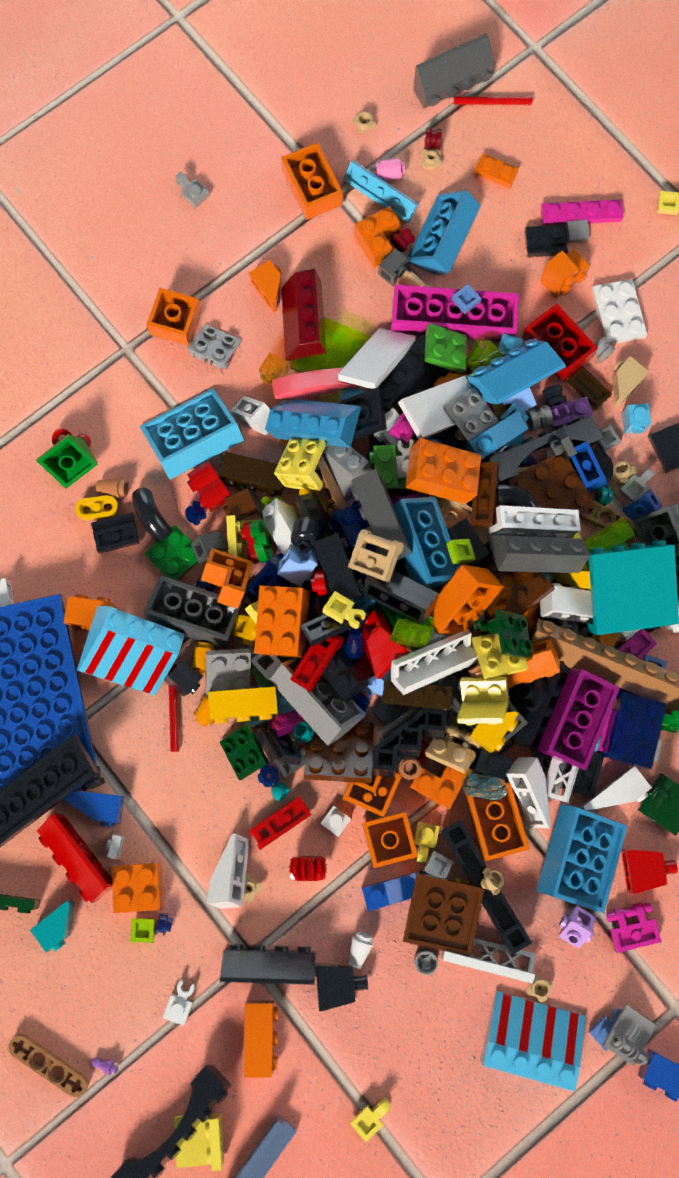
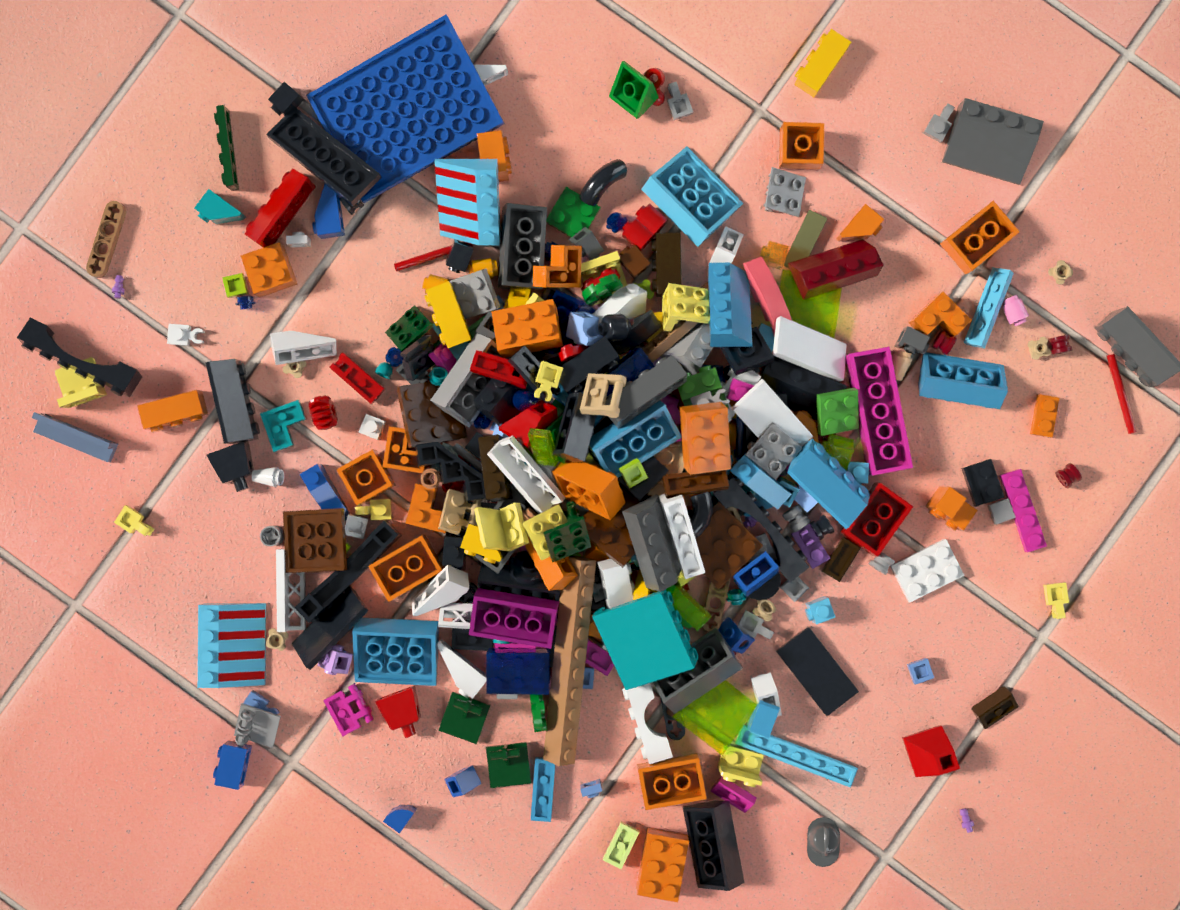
camera: 80 degrees right, 10 degrees up
(96, 422) = (678, 104): none -> light grey plate
(97, 507) = (597, 131): yellow plate -> none
(99, 278) = (821, 62): none -> yellow brick
(114, 487) = (620, 140): nougat cone -> none
(115, 533) = (577, 154): black plate -> none
(222, 148) = (992, 141): none -> dark grey slope
(263, 336) = (806, 237): none -> olive tile
(303, 923) = (277, 422): none -> teal plate
(466, 299) = (891, 418): medium blue plate -> none
(484, 786) = (431, 545): clear light blue plate -> none
(492, 880) = (353, 580): tan plate -> none
(542, 923) = (329, 628): none -> black tile
(559, 163) = (1068, 475): none -> dark red wheel
(563, 444) = (768, 544): dark grey tile -> none
(627, 378) = (858, 593): tan slope -> none

